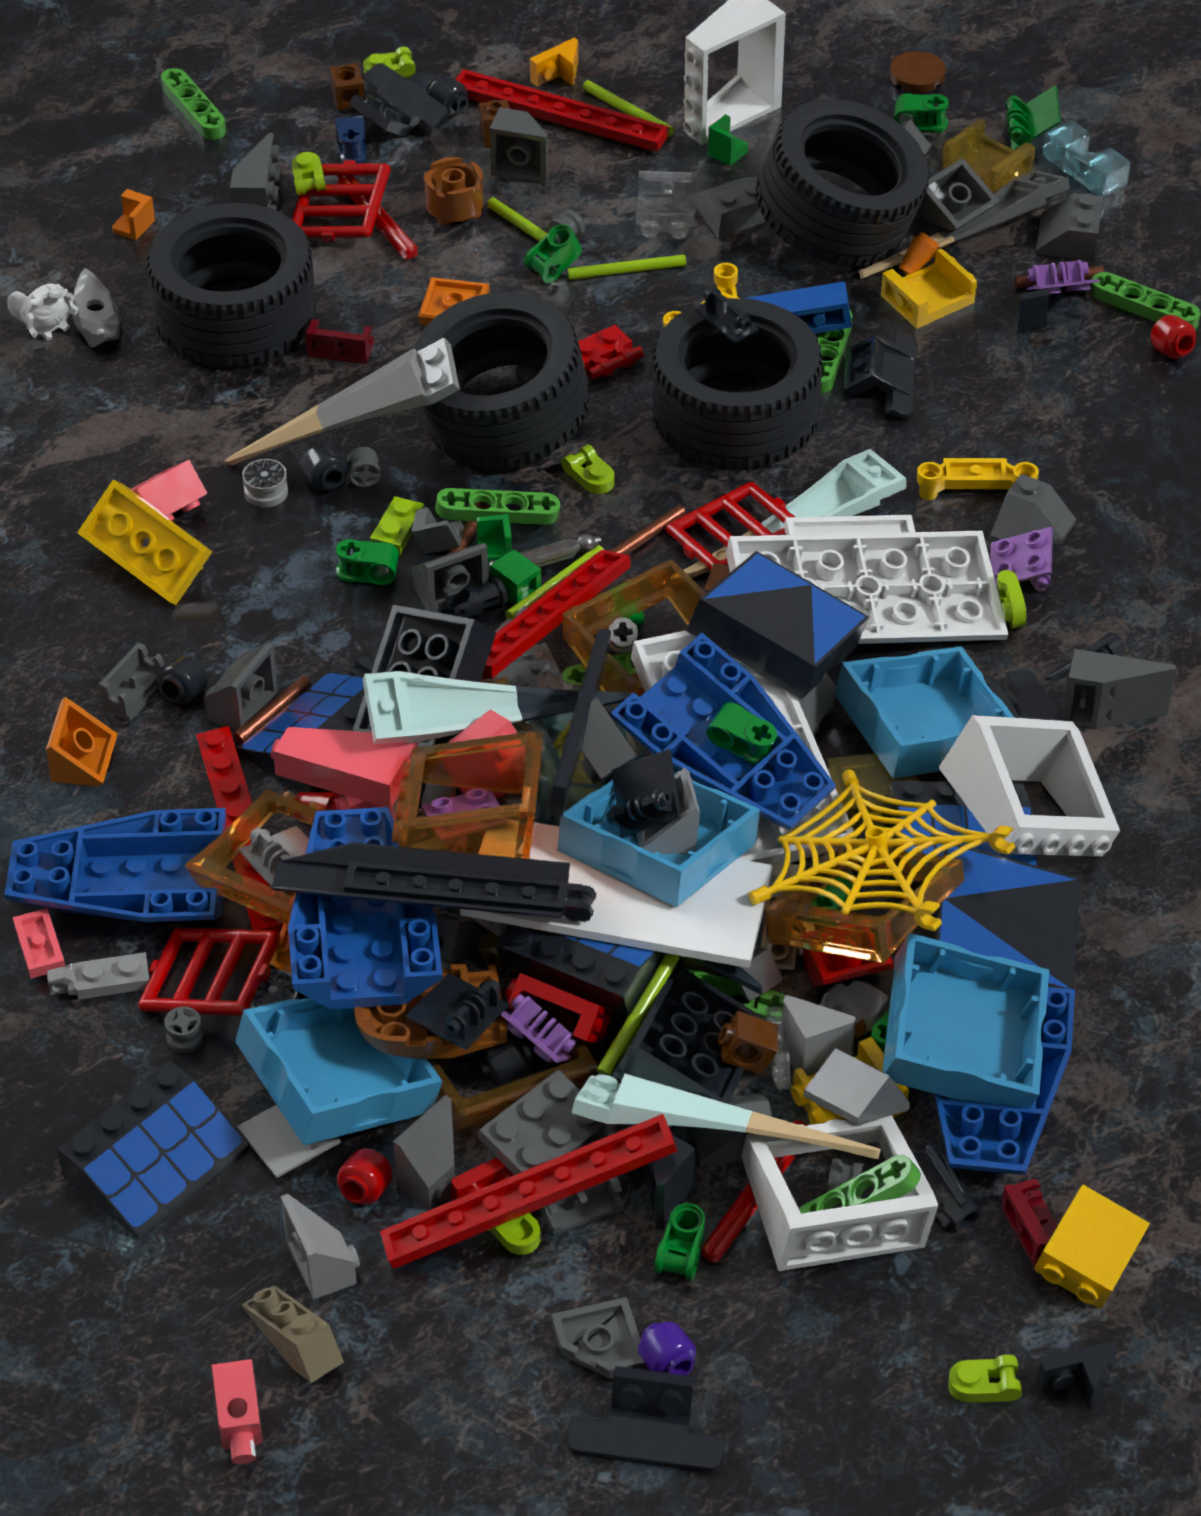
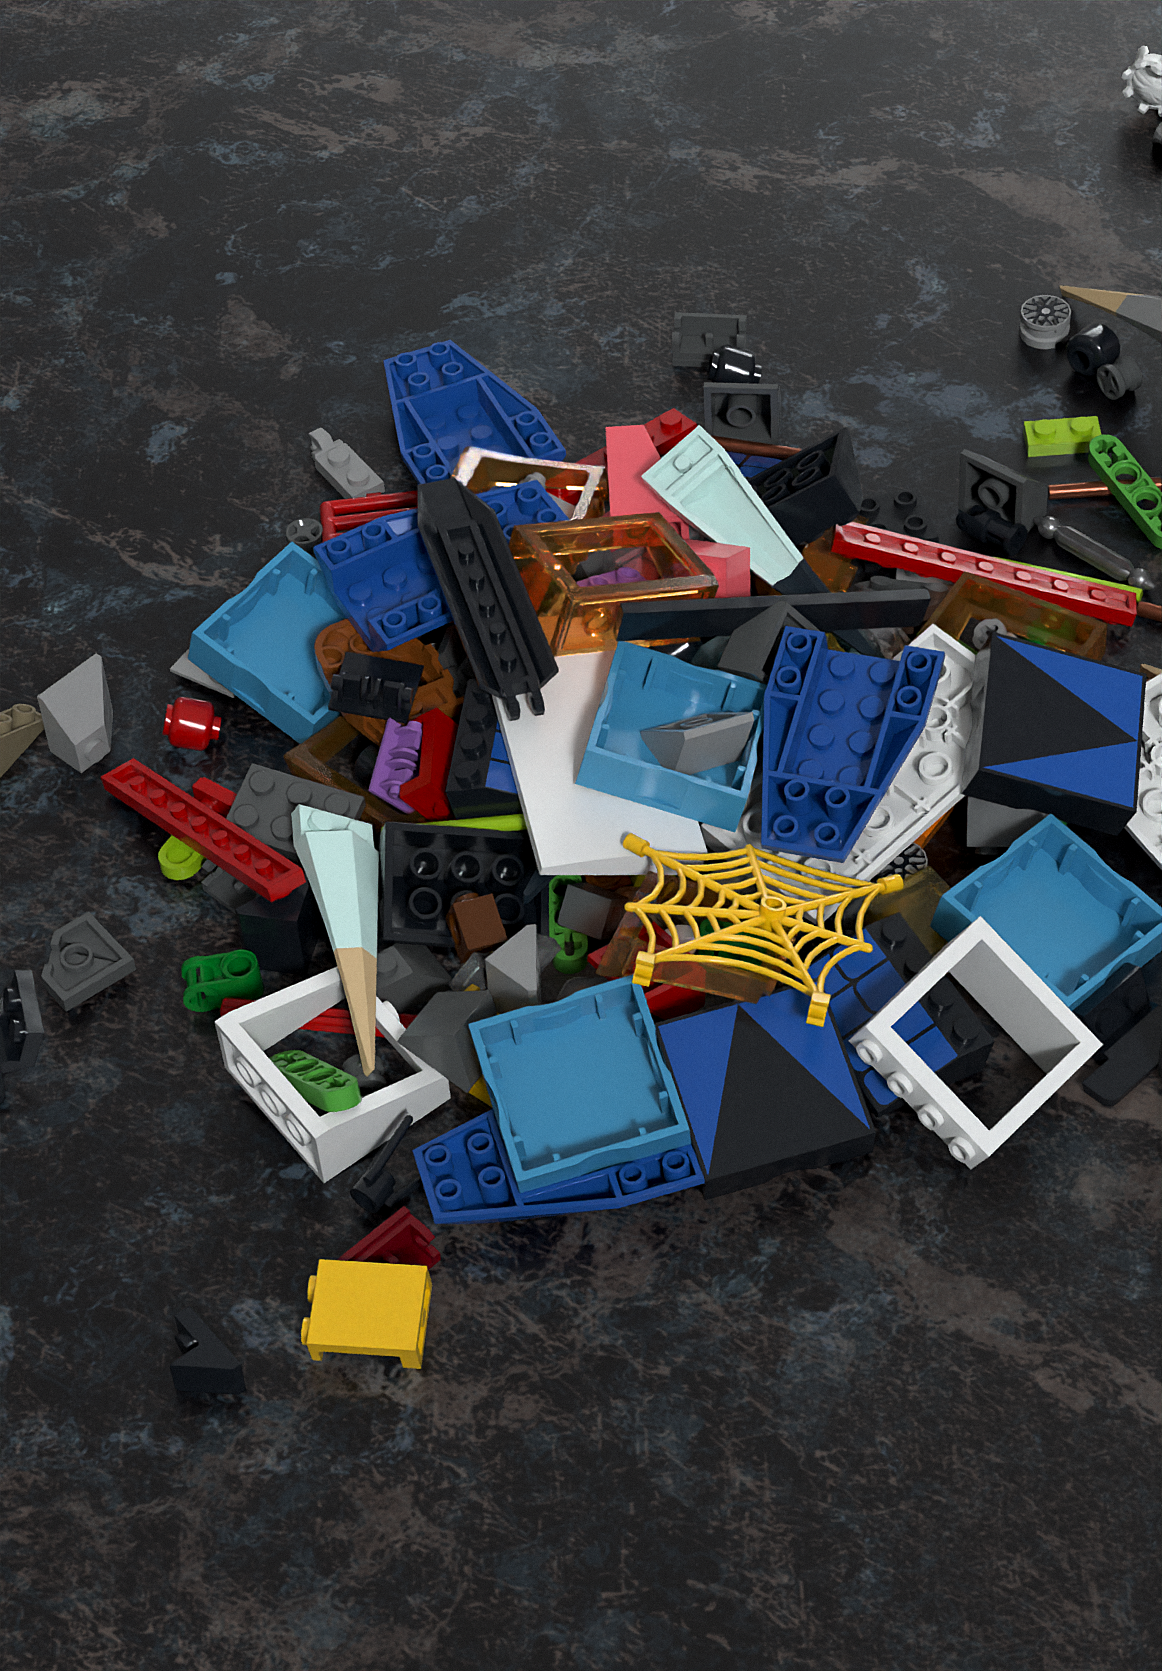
camera: 70 degrees right, 0 degrees up
(38, 942) = (355, 412): coral plate -> none
(79, 746) = (603, 335): orange slope -> none
(122, 524) = (885, 267): yellow piece -> none
(151, 1149) = (154, 572): slope -> none
(173, 489) = (970, 260): coral slope -> none
(369, 563) = (985, 428): green piece -> none
(427, 1156) = (226, 744): dark grey slope -> none
(434, 535) = (1062, 459): dark grey panel -> none
(495, 534) = (1089, 511): green panel -> none
(517, 575) = (1040, 540): green panel -> none
(644, 794) = (682, 706): black hinge -> none
(667, 1349) = (81, 1011): dark purple head -> none
(740, 731) = (849, 747): green piece -> none
(970, 1380) = (162, 1272): lime plate -> none

